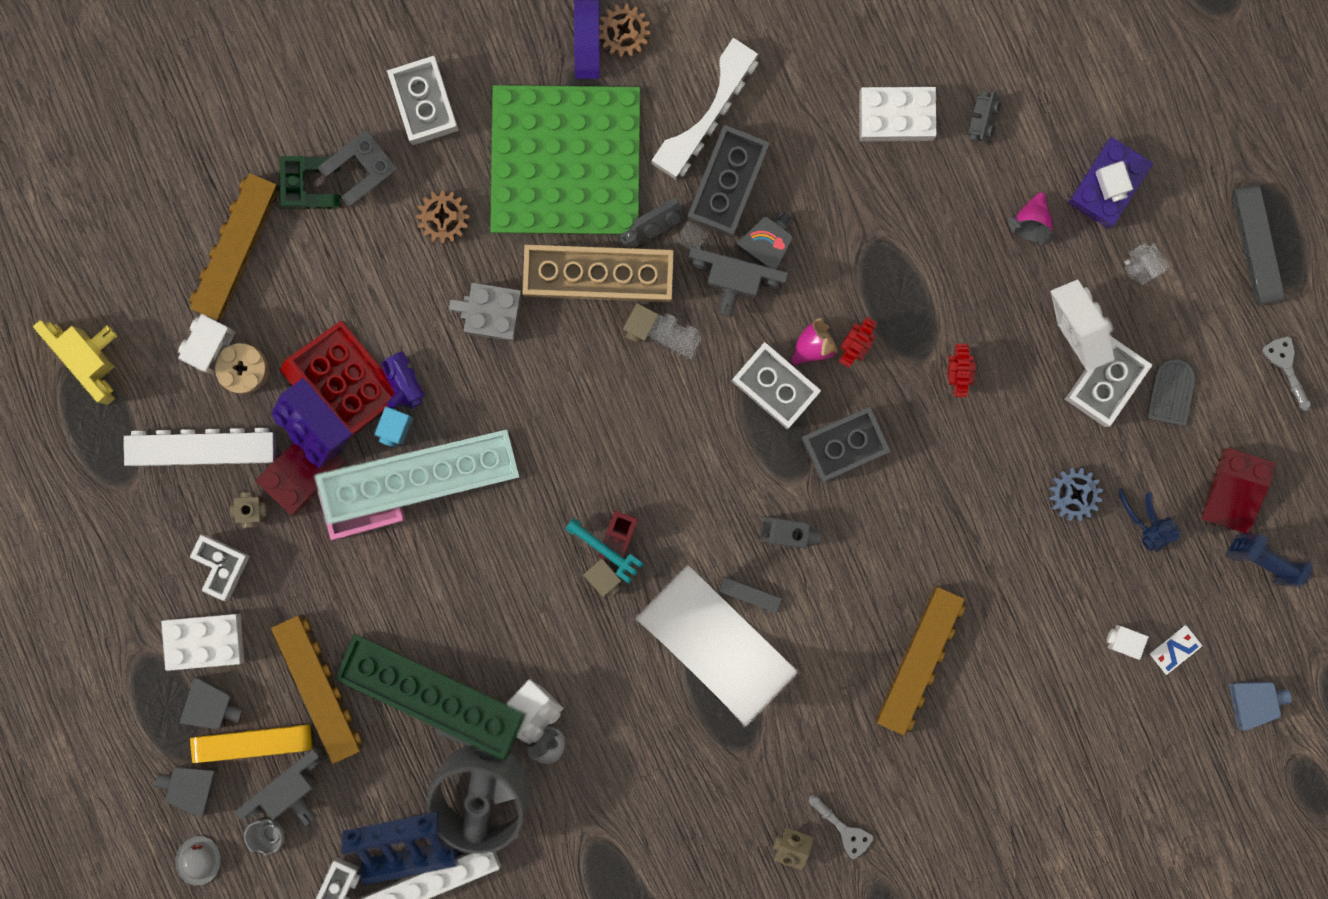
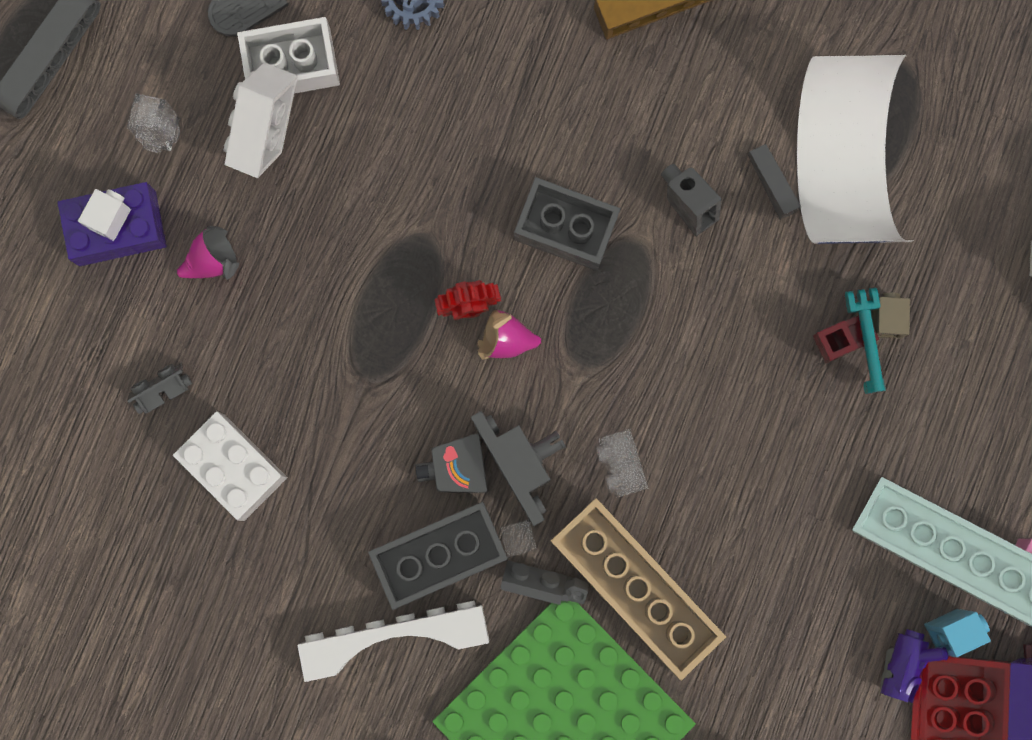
camera: 135 degrees left, 5 degrees down
(490, 311) = (767, 651): light grey hinge -> none
(639, 323) = (642, 506): dark tan brick -> none
(776, 385) = (576, 333): white brick -> none
(961, 370) = (403, 188): red gear -> none

